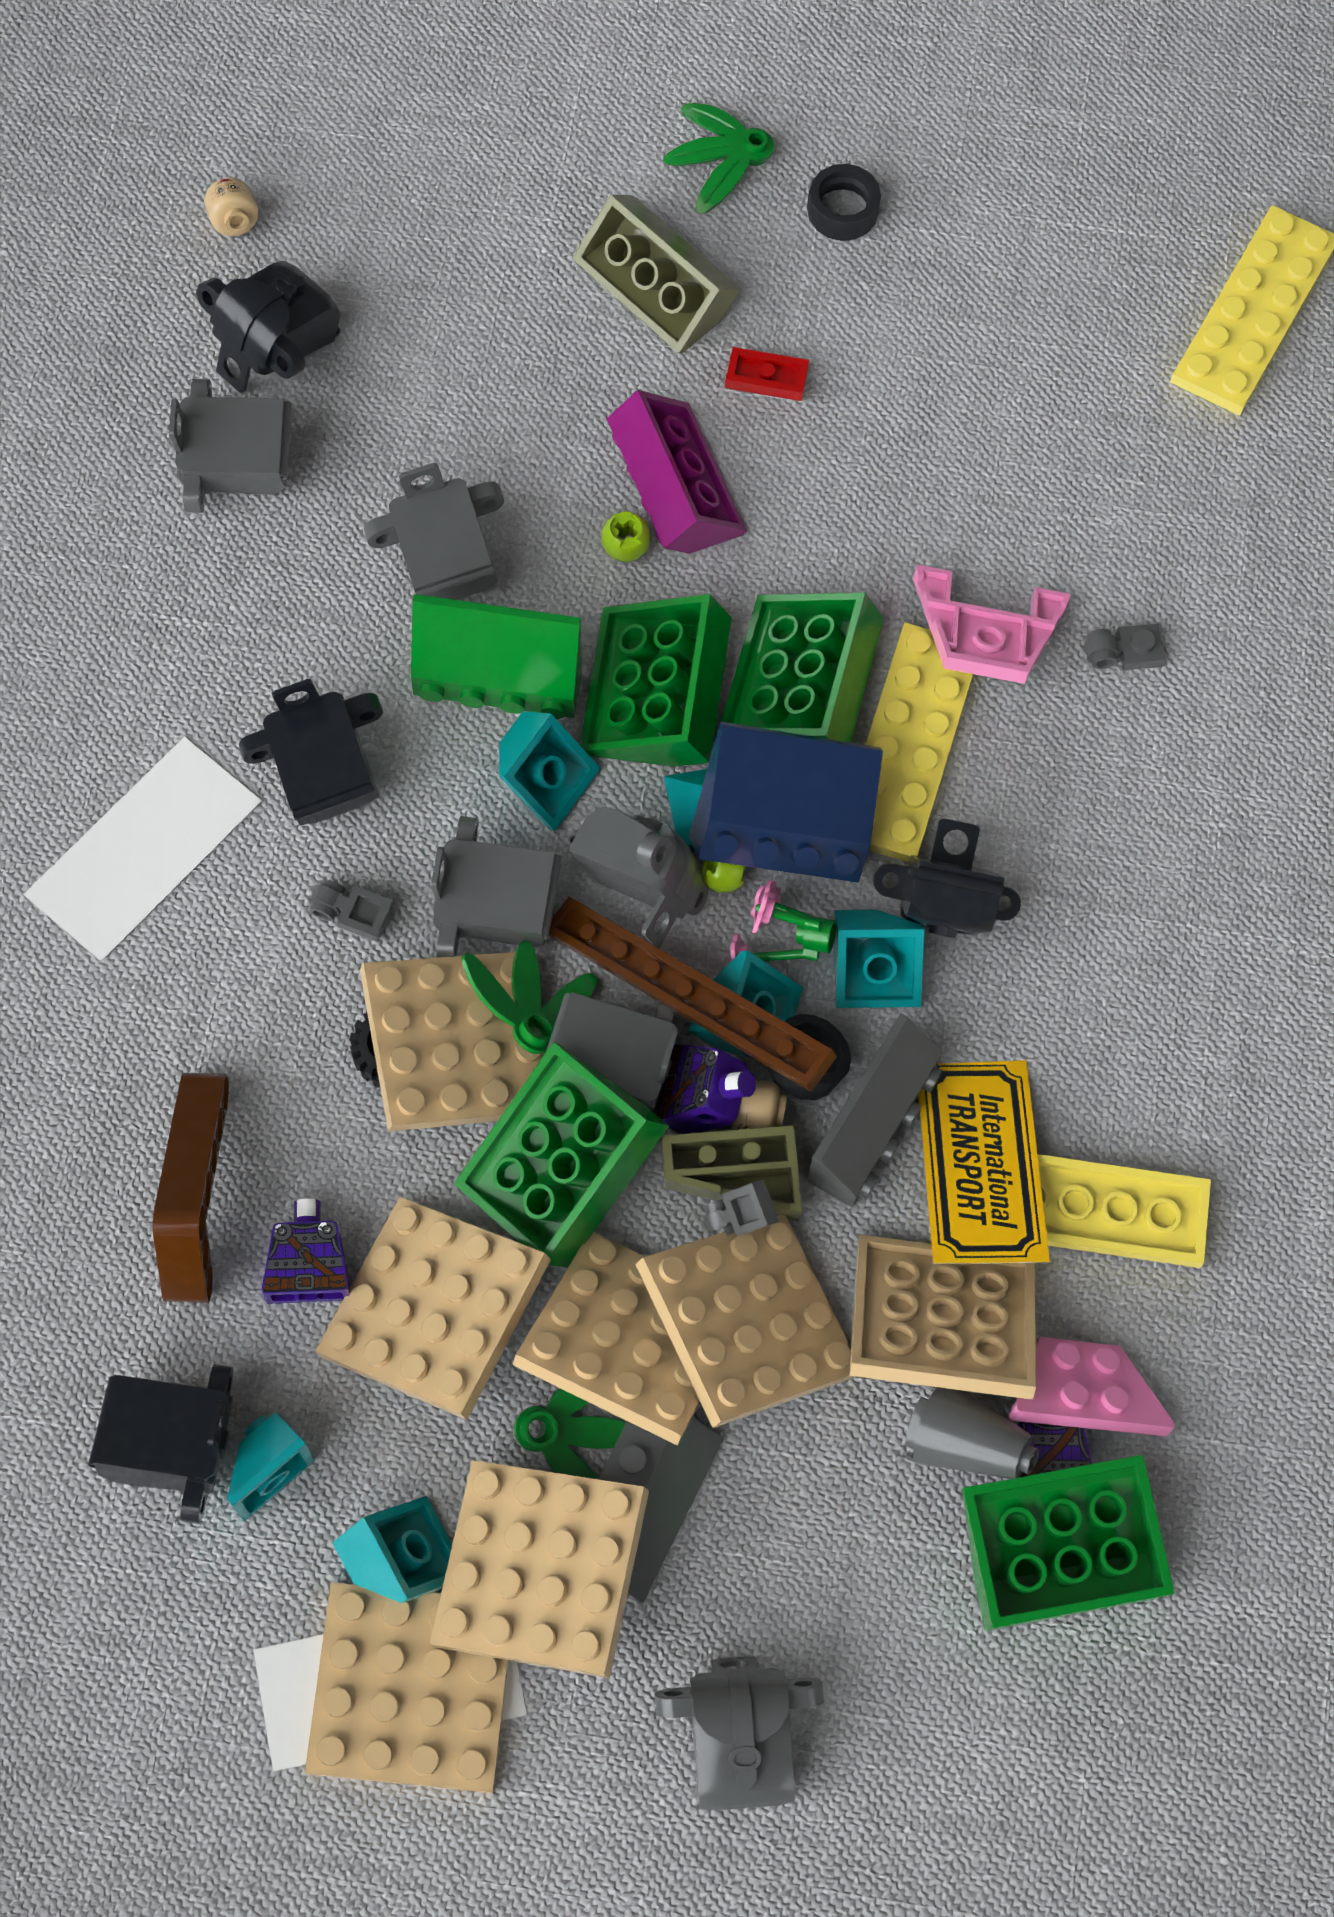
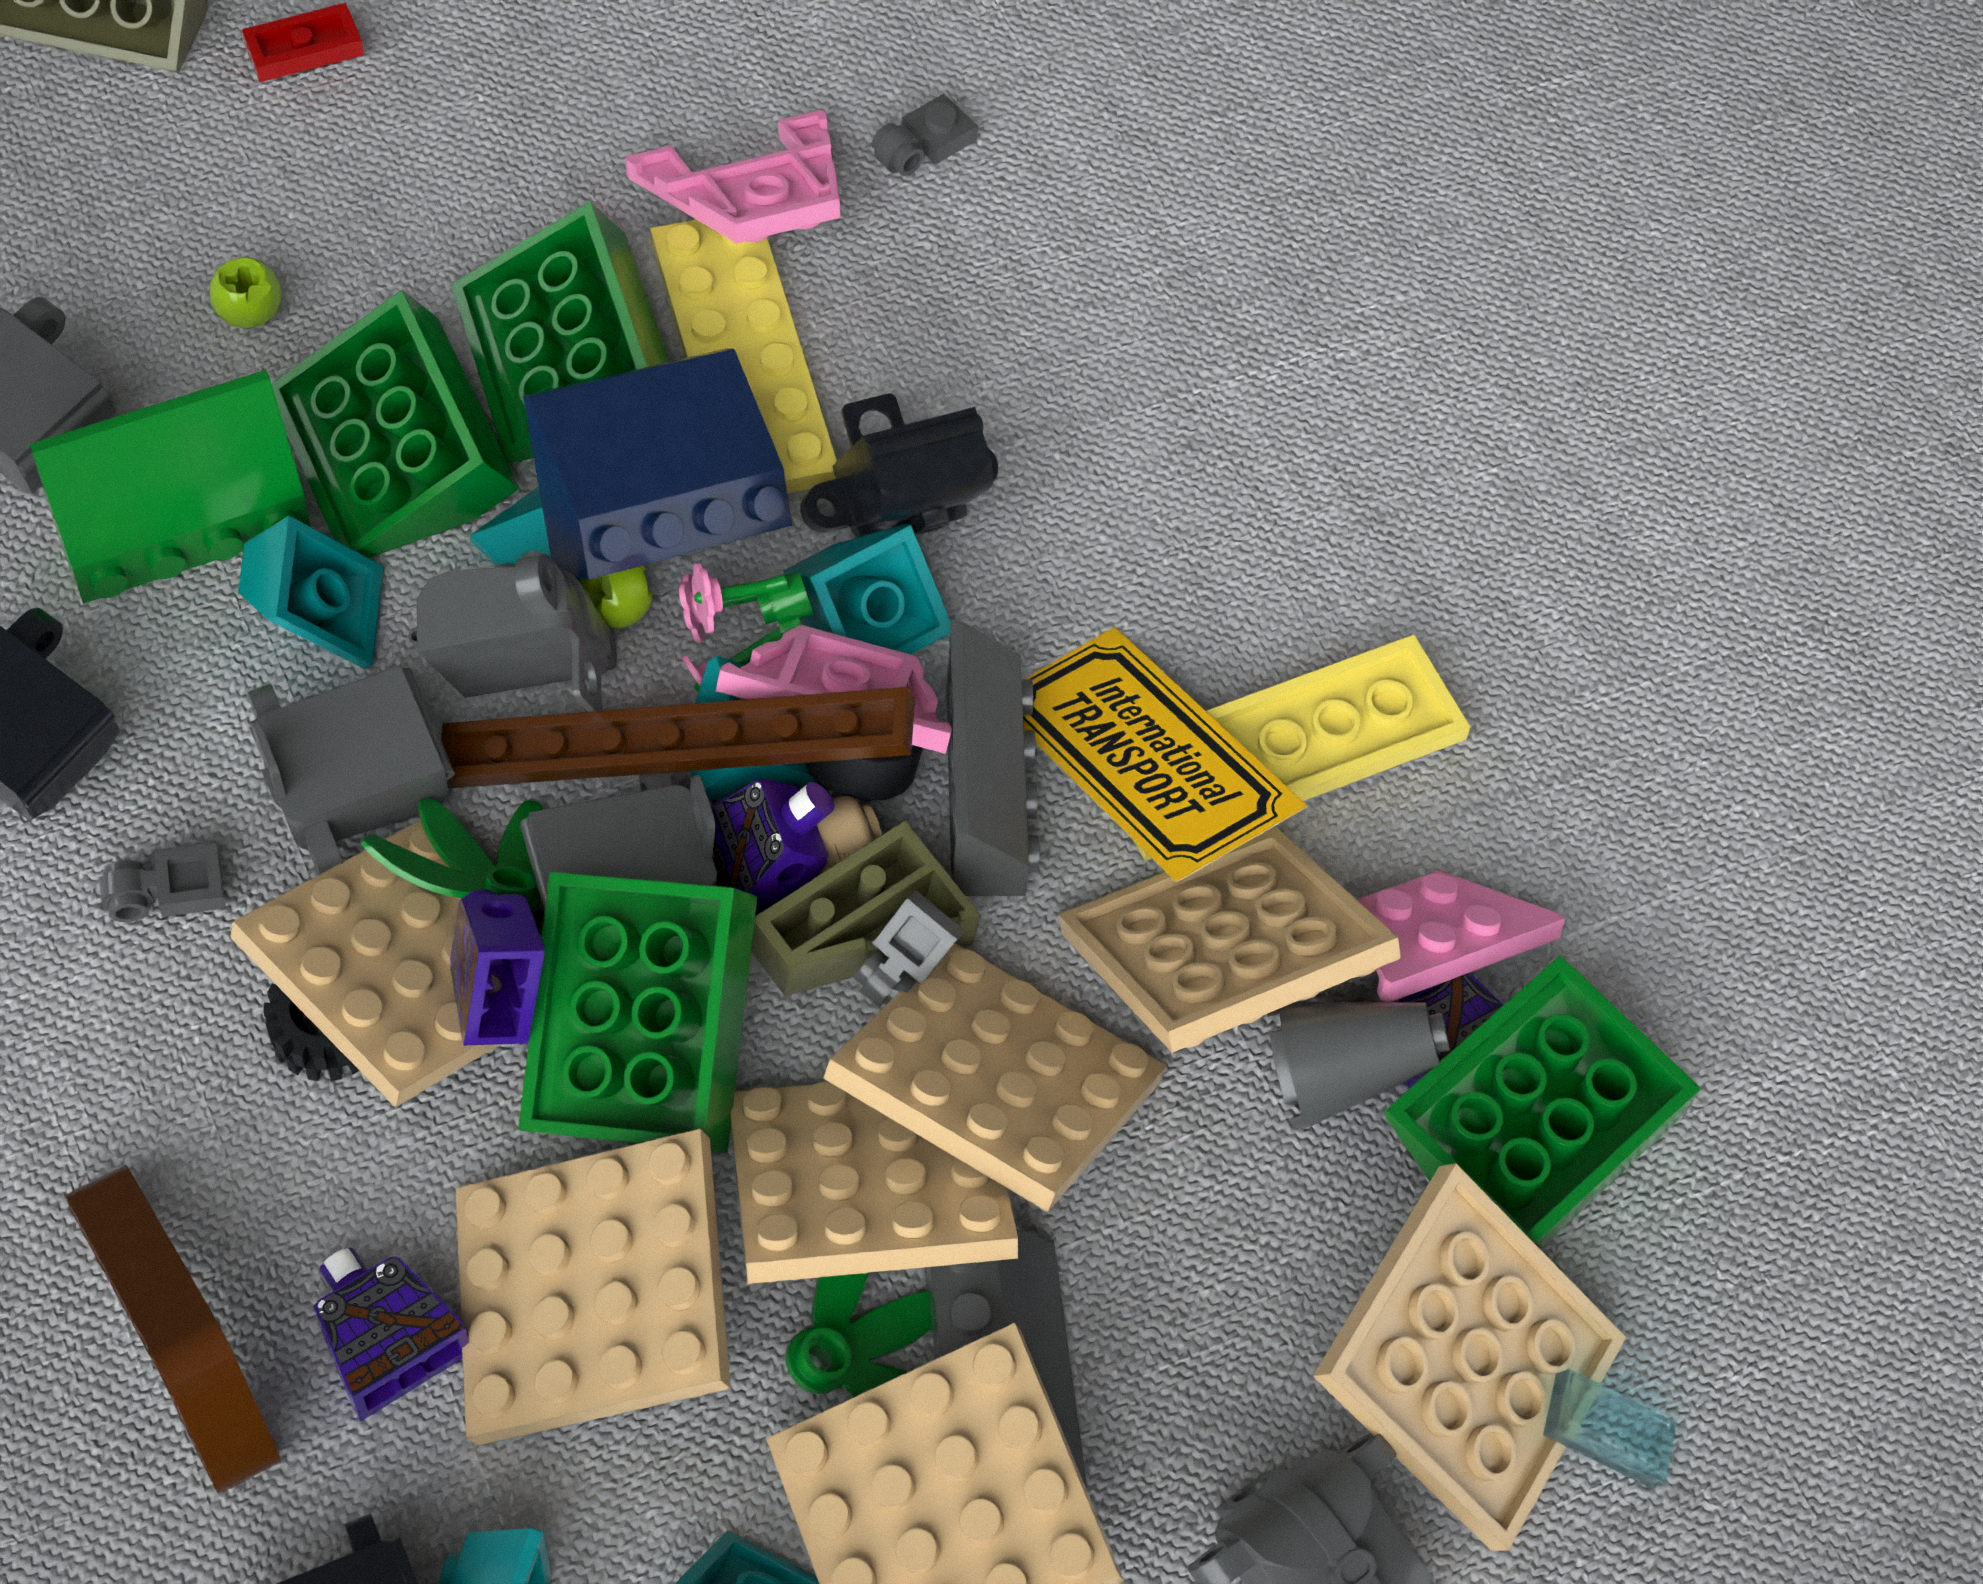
camera: 35 degrees left, 10 degrees down
(497, 1068) = (501, 940): none -> dark purple torso
(675, 473) = (258, 197): magenta slope -> none
(817, 1004) = (825, 662): none -> bright pink wing
(912, 1672) = (1462, 1355): none -> tan plate
(975, 1765) = (1610, 1428): none -> clear light blue tile

